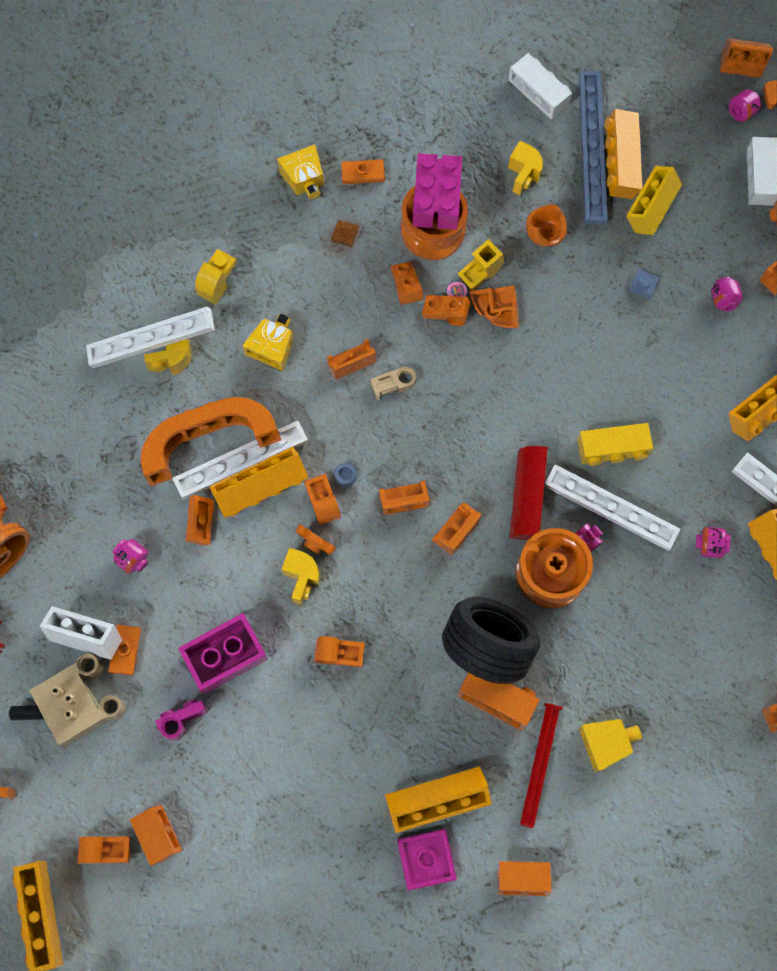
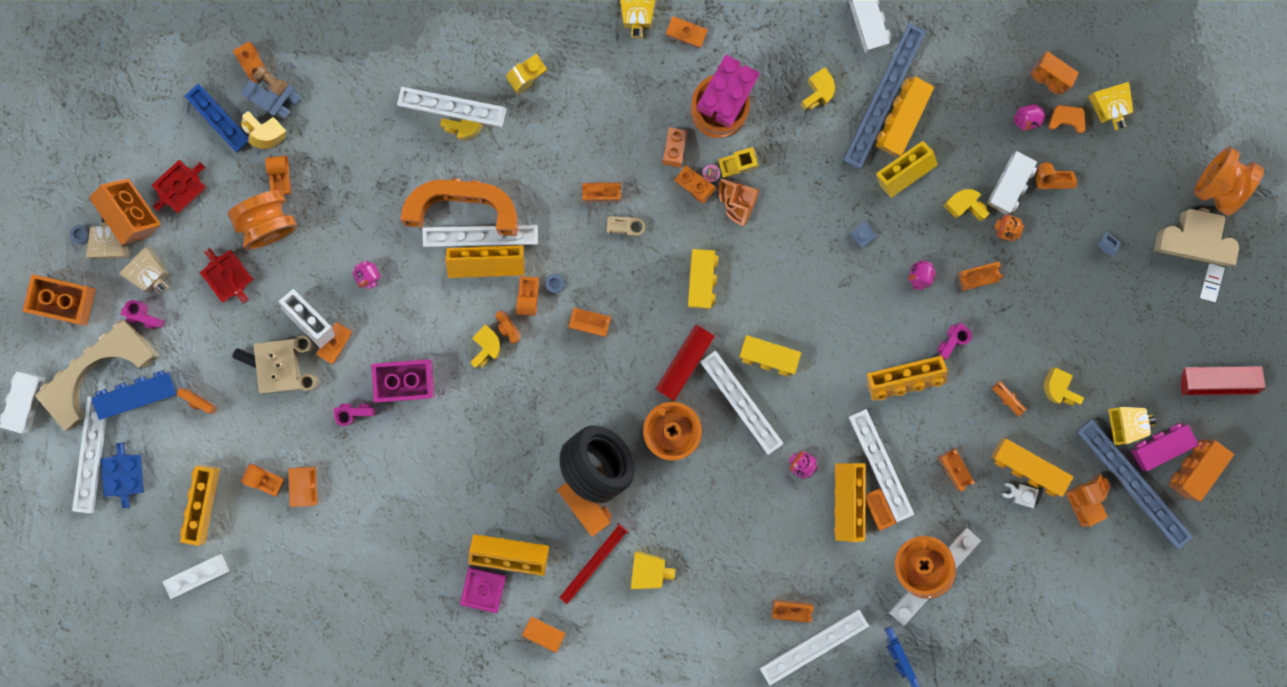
camera: 25 degrees right, 15 degrees up
(199, 520) = (429, 270): orange plate -> none
(270, 342) = (545, 150): yellow torso -> none
(339, 652) = (487, 417): orange plate -> none
(345, 233) = (646, 80): clear orange tile -> none
(457, 528) = (617, 364): orange hinge -> none
(502, 398) = (702, 279): none -> yellow brick
(544, 221) = (808, 152): orange piece -> none
(590, 536) = (711, 418): dark pink gear -> none
(729, 206) = (964, 200): none -> yellow brick

